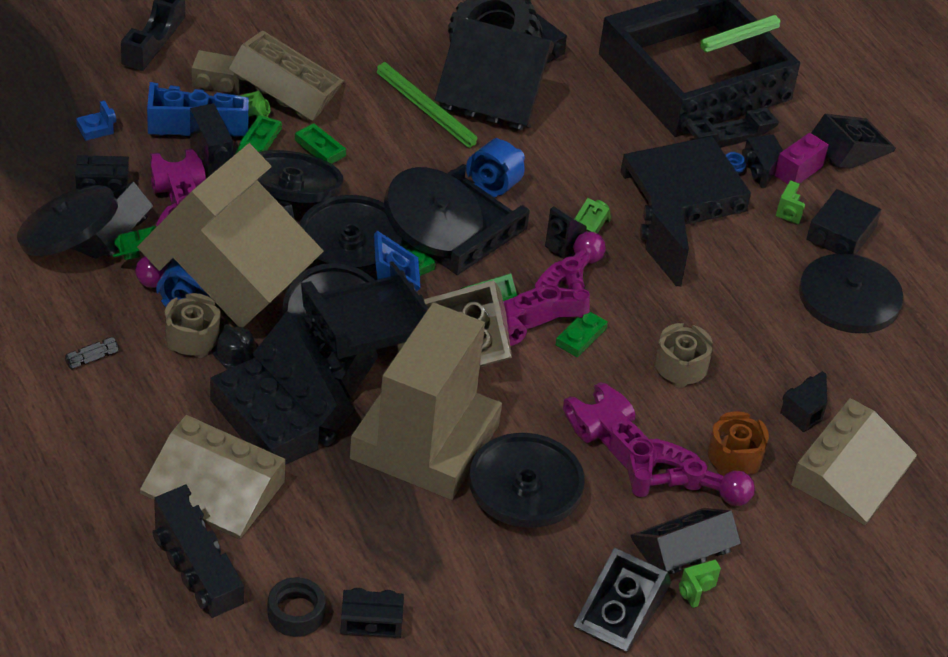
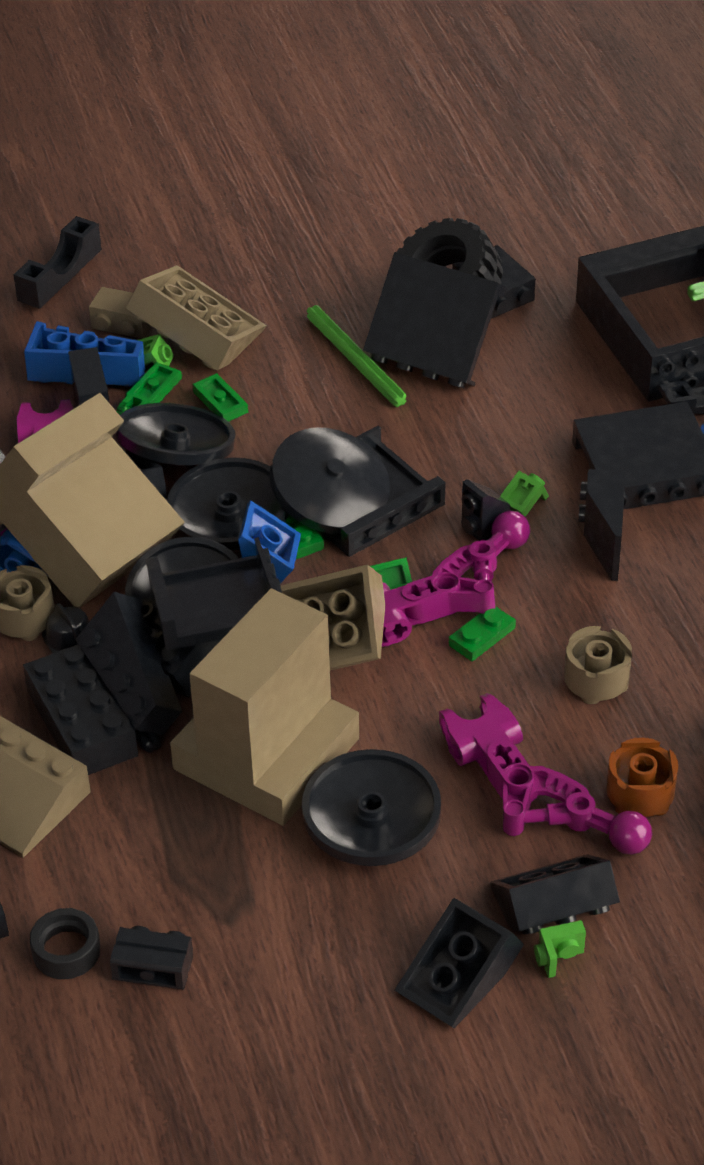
camera: 15 degrees right, 0 degrees up
(496, 167) = (417, 430): blue brick -> none

